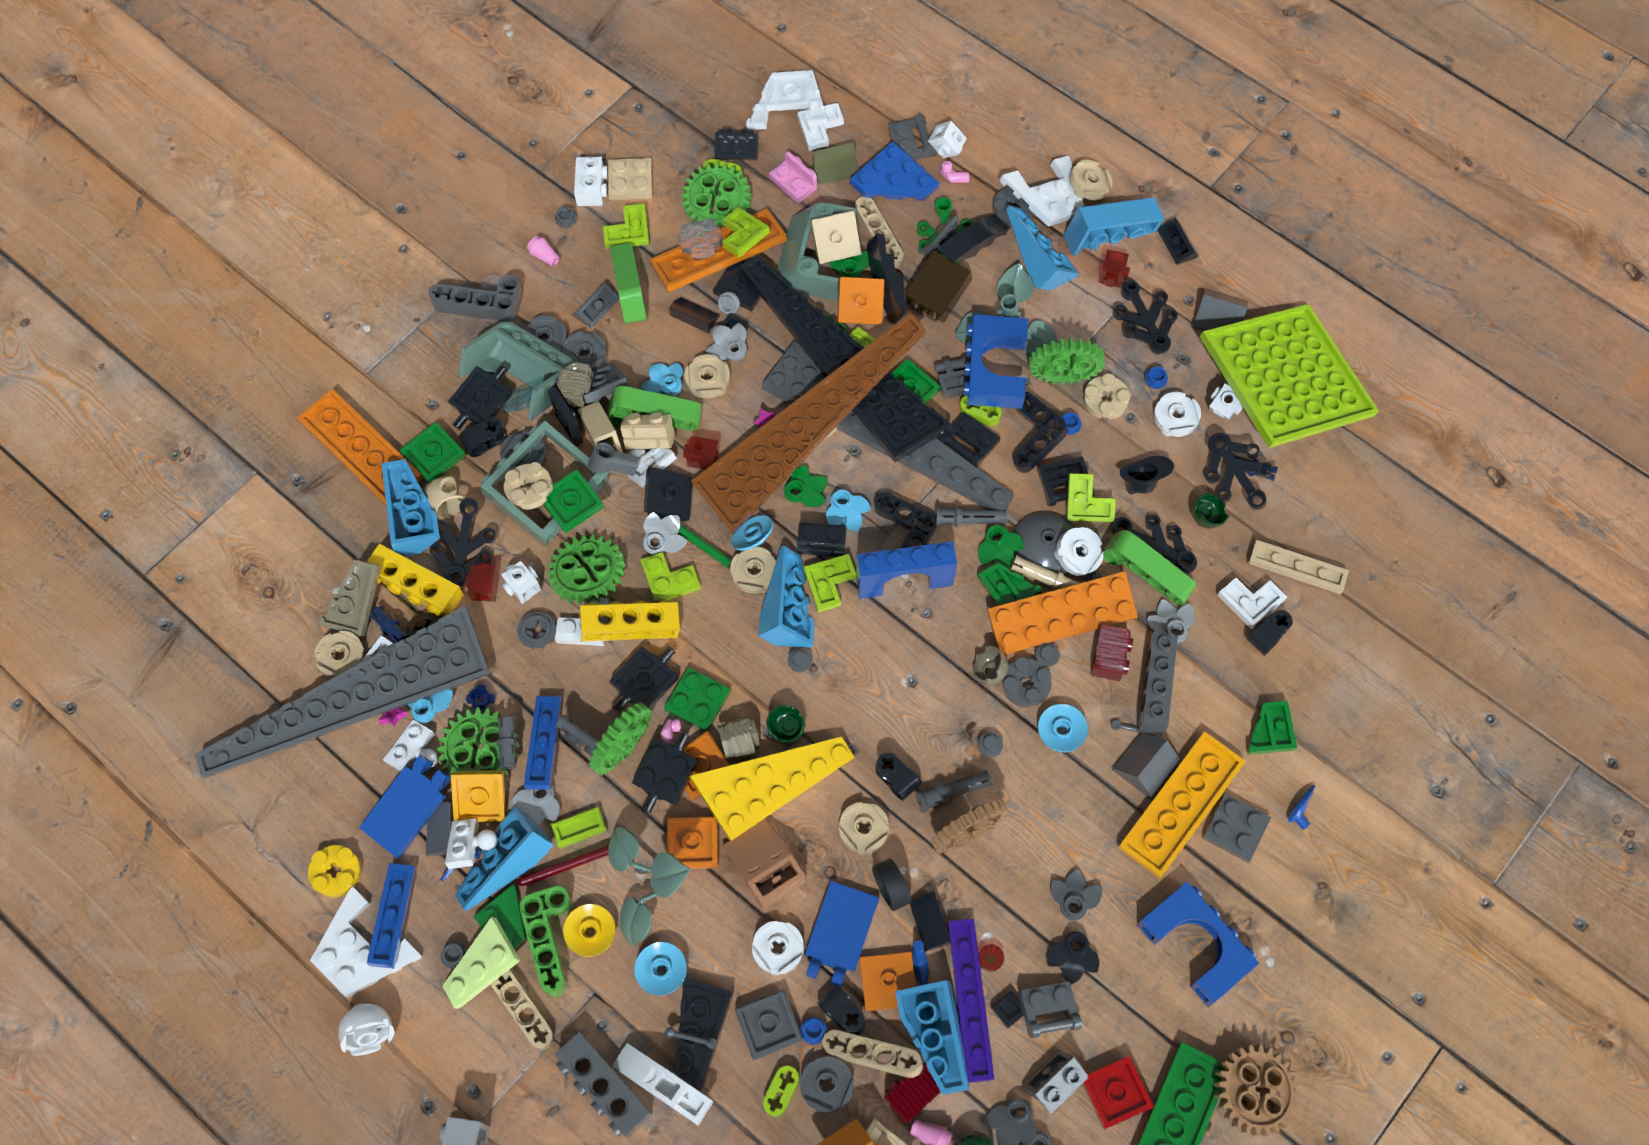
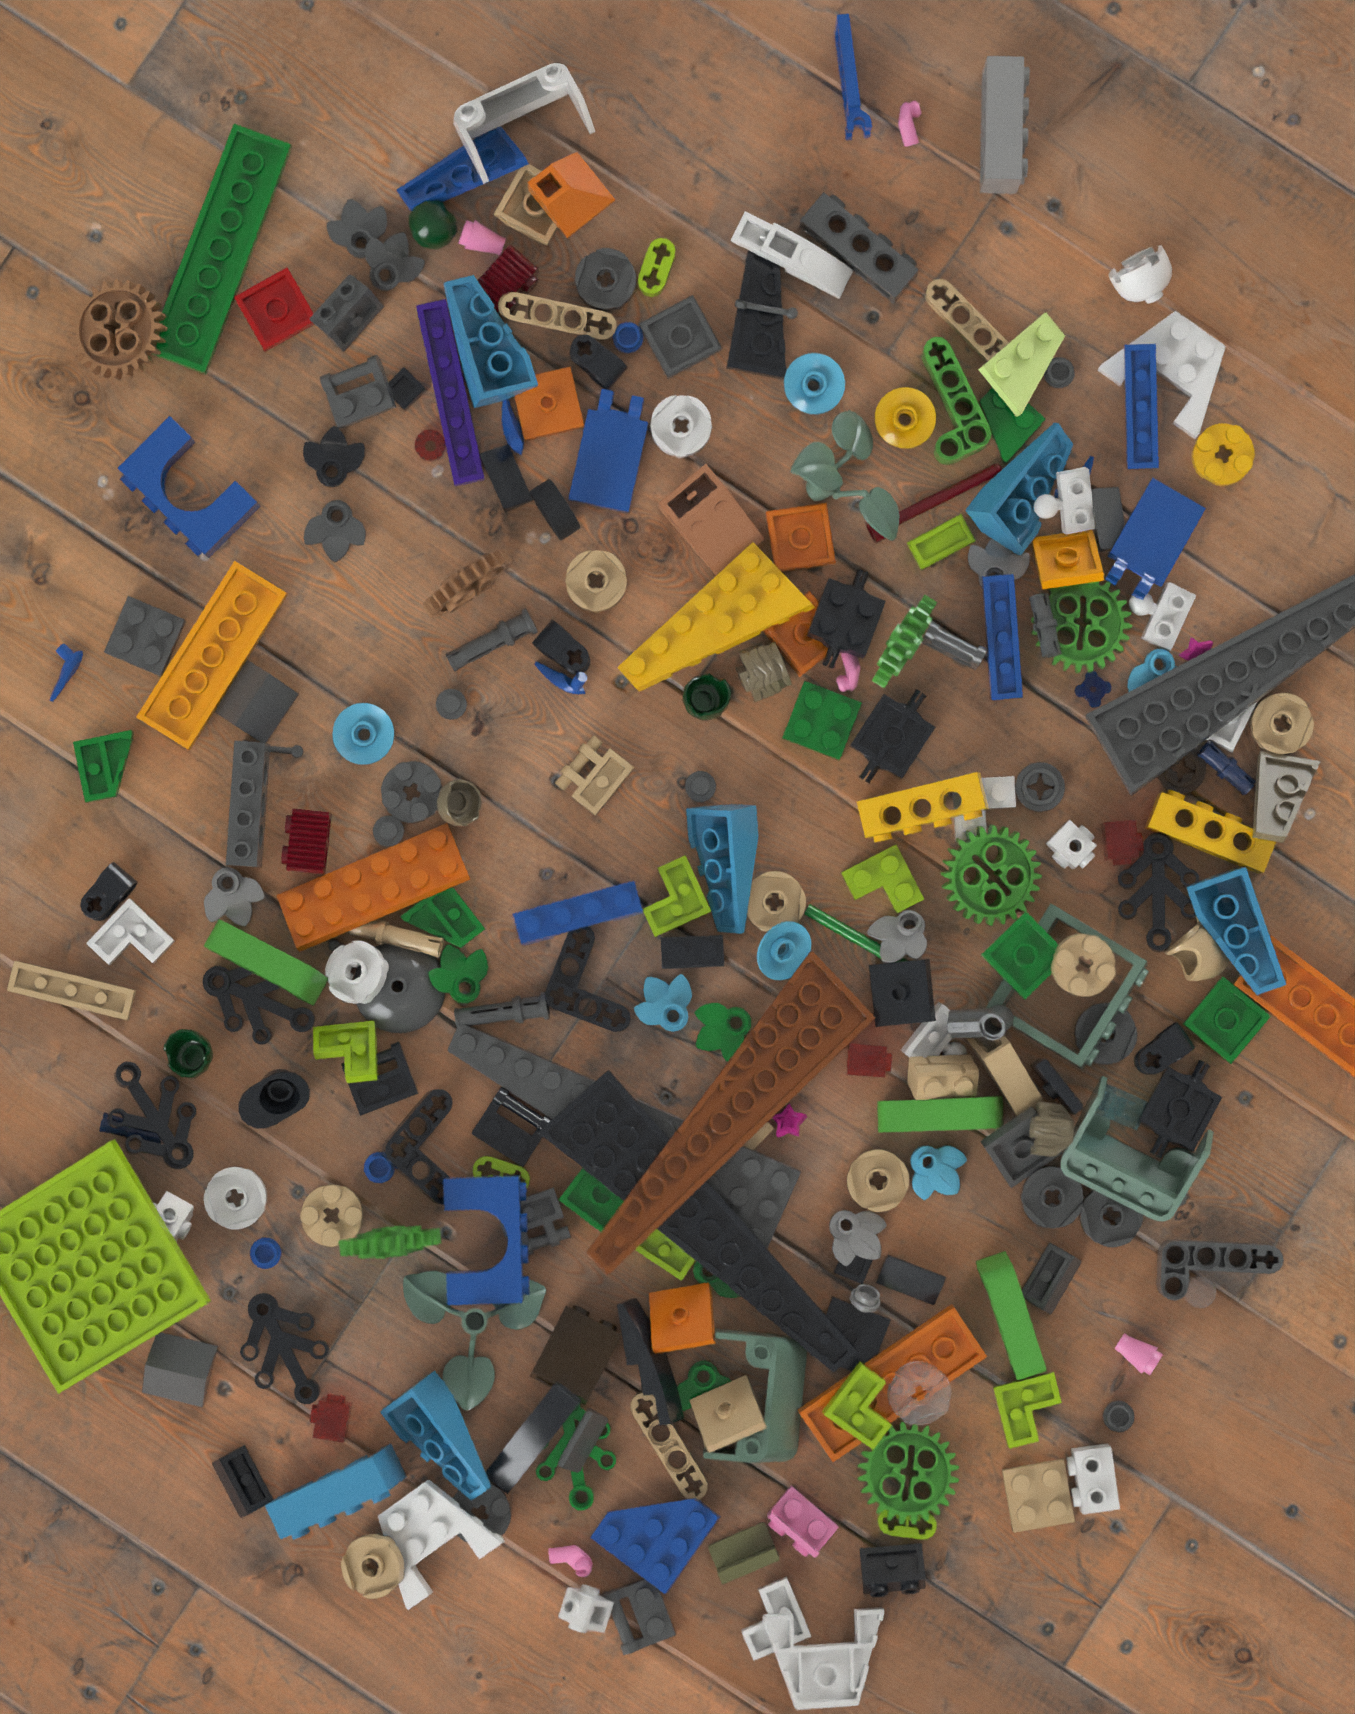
camera: 175 degrees right, 20 degrees up
(878, 670) = (601, 782): none -> tan plate
(901, 754) = (560, 680): none -> blue bar

